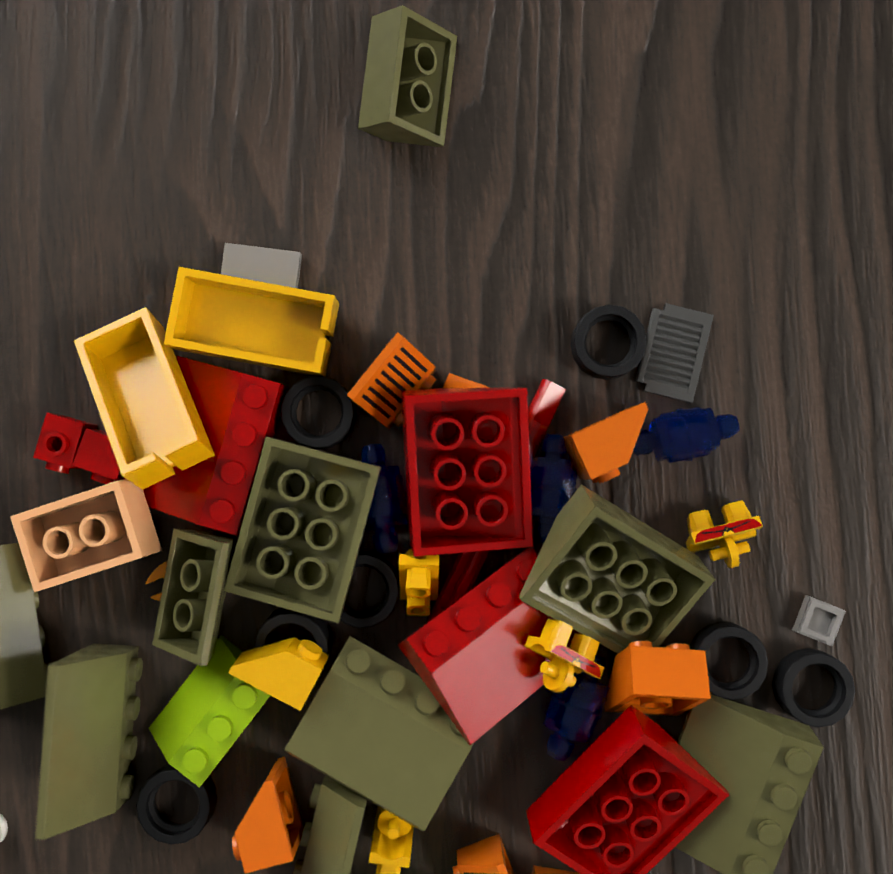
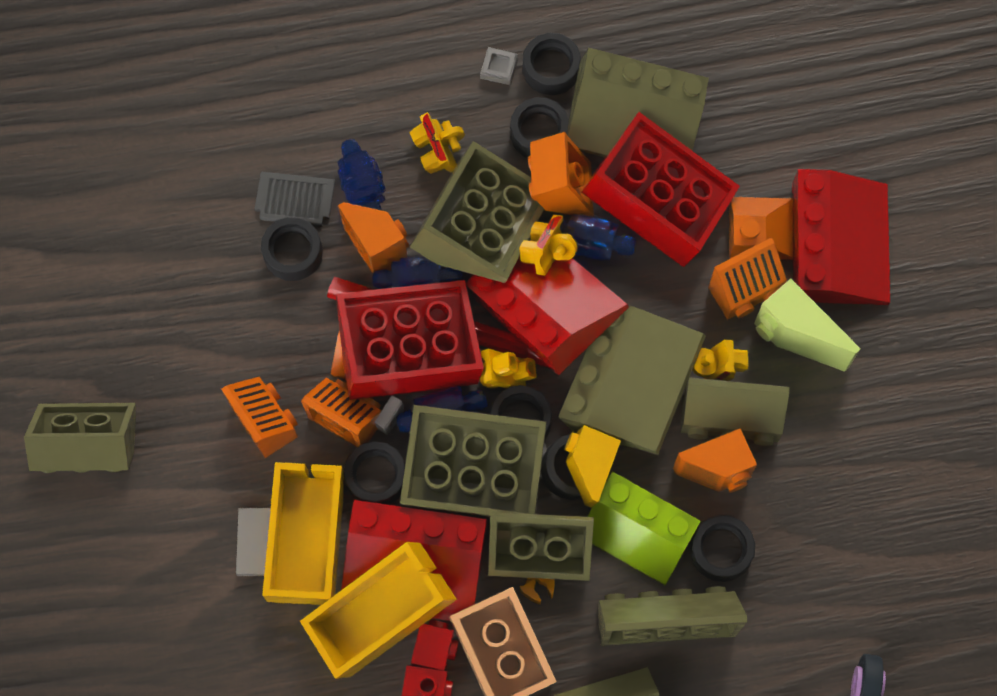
camera: 90 degrees left, 15 degrees down
(384, 436) = (387, 418): none -> light grey tile
(402, 284) = (261, 414): none -> orange slope

